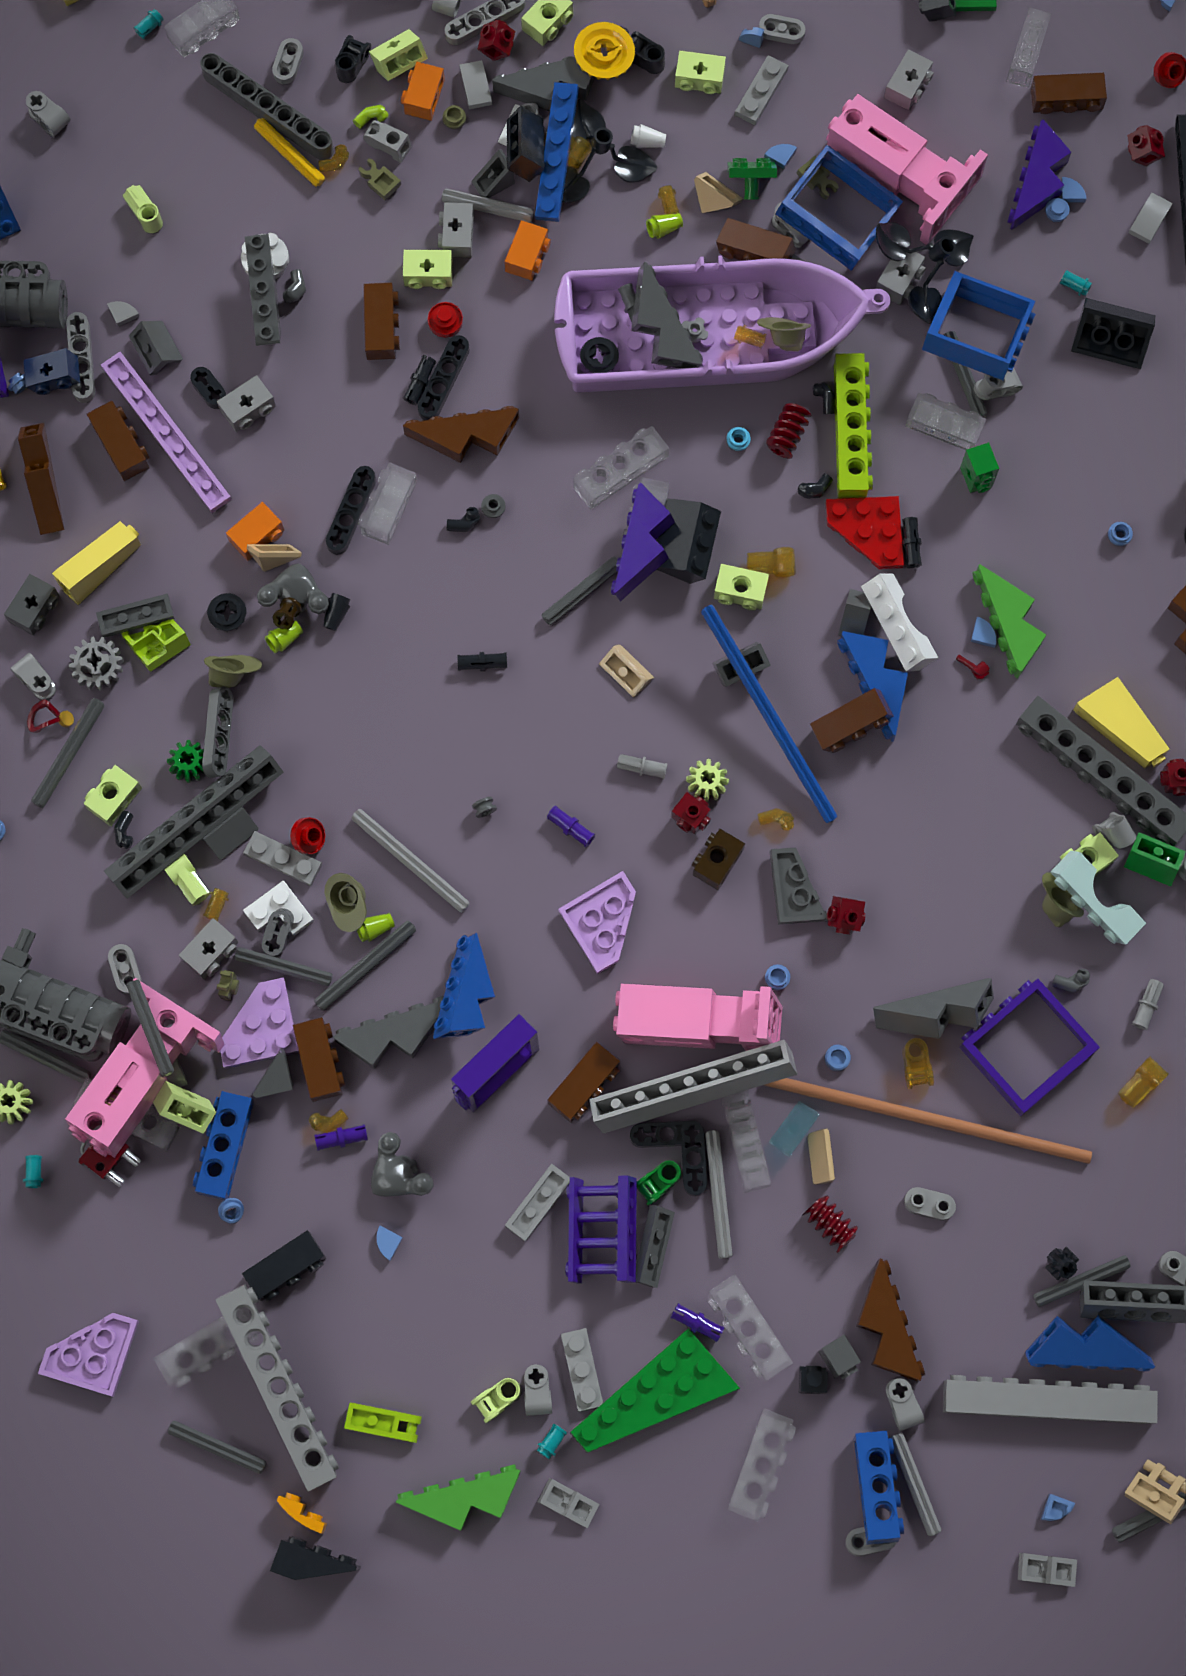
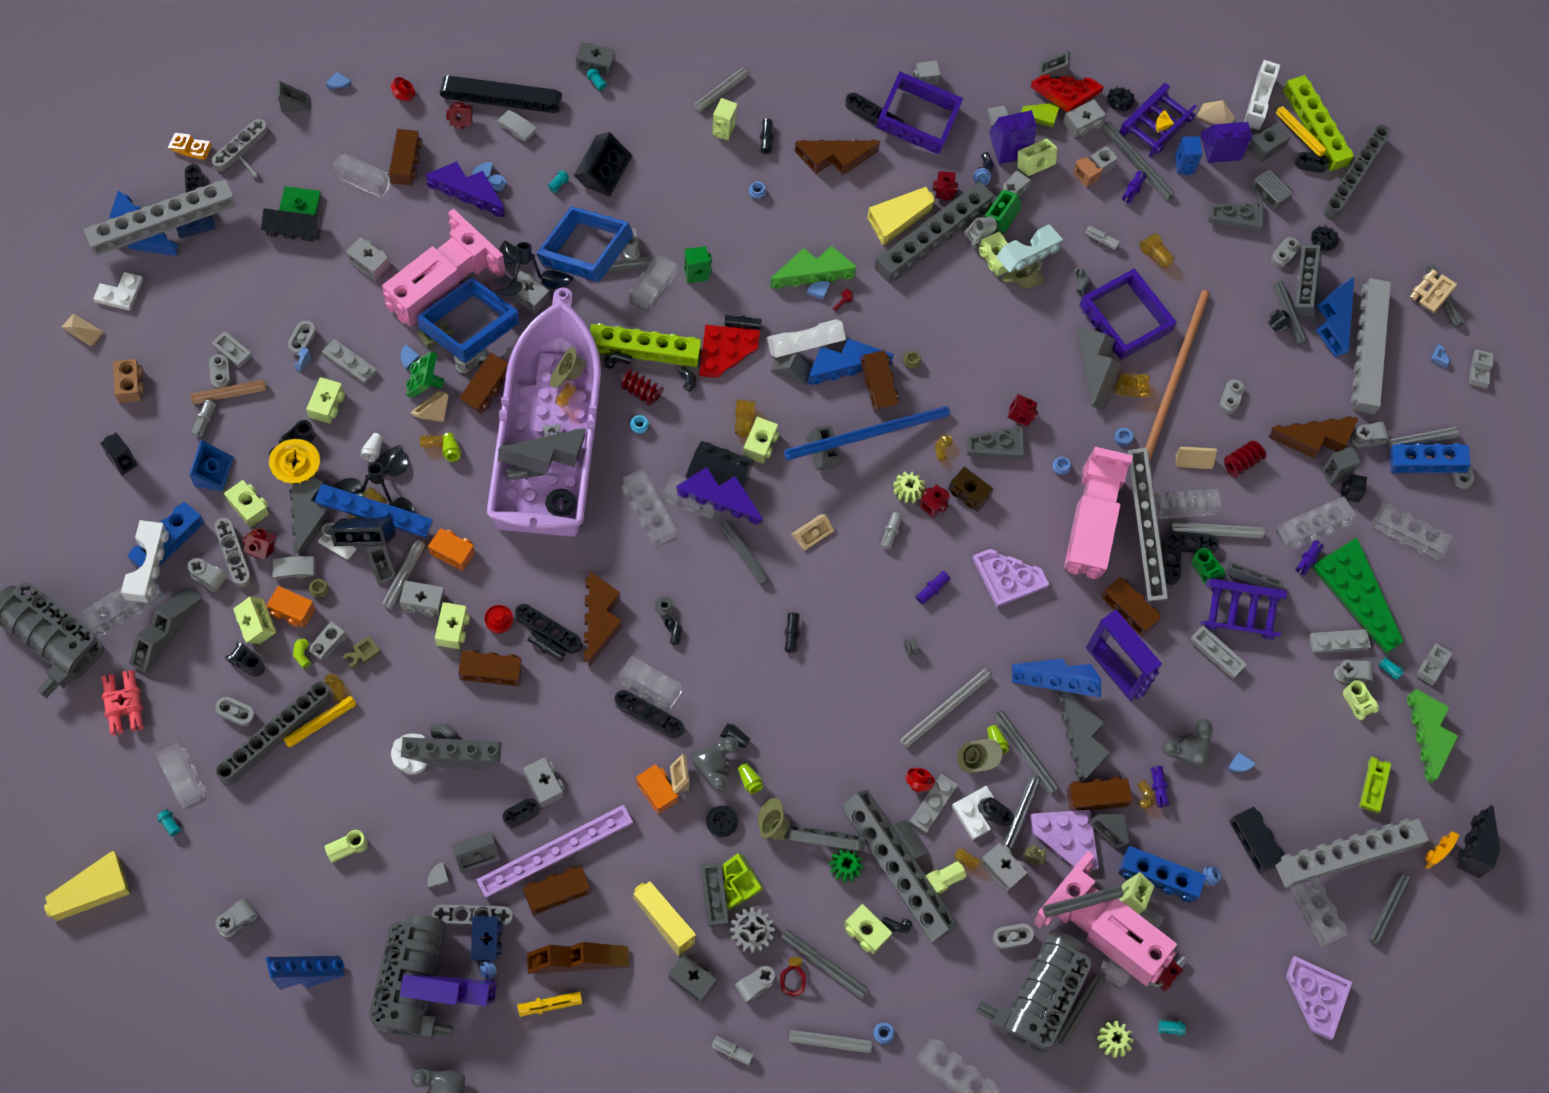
camera: 90 degrees left, 10 degrees down
(288, 620) = (734, 770): dark brown bush -> none
(794, 1128) = (1174, 472): clear light blue slope -> none
(899, 765) = (912, 360): none -> olive plate

